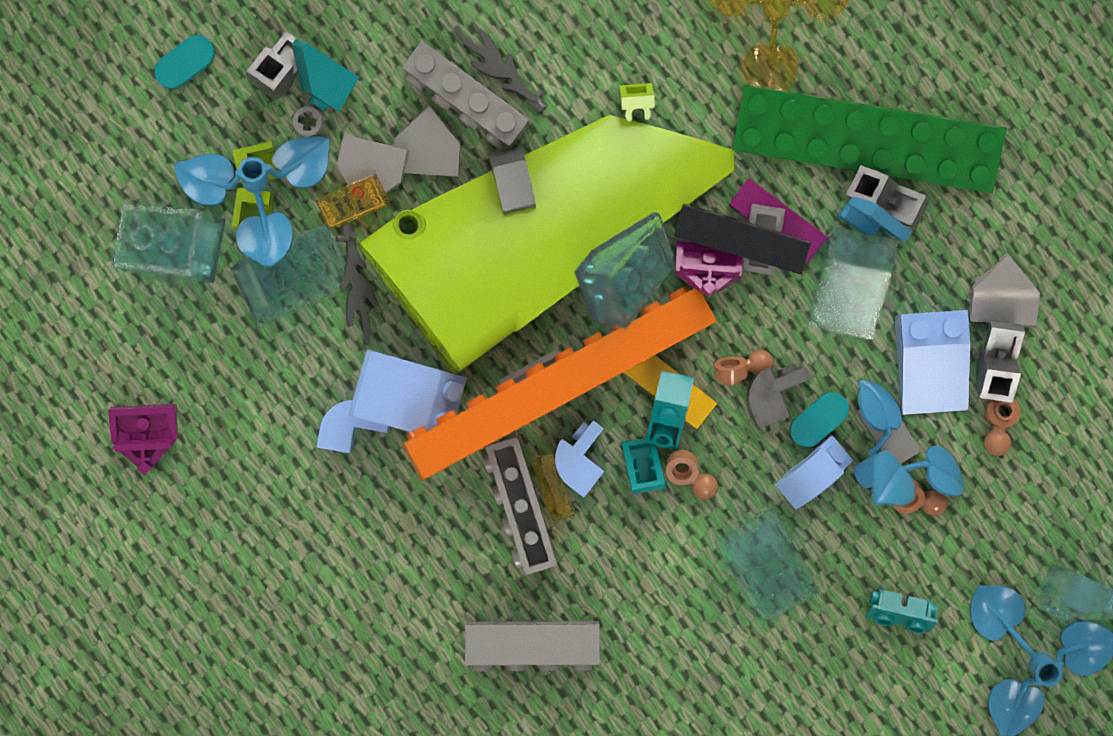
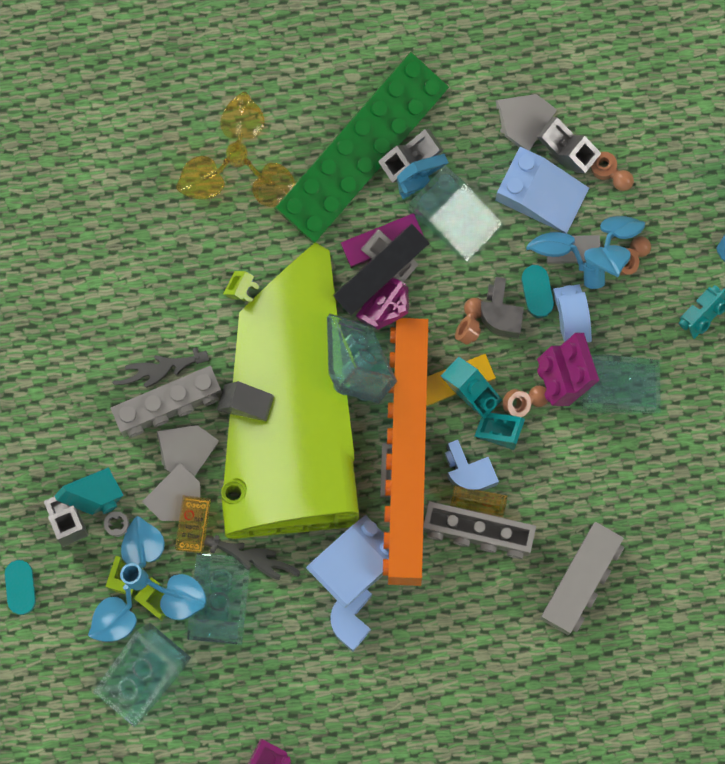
camera: 65 degrees left, 10 degrees down
(746, 503) = (567, 370): none -> magenta plate

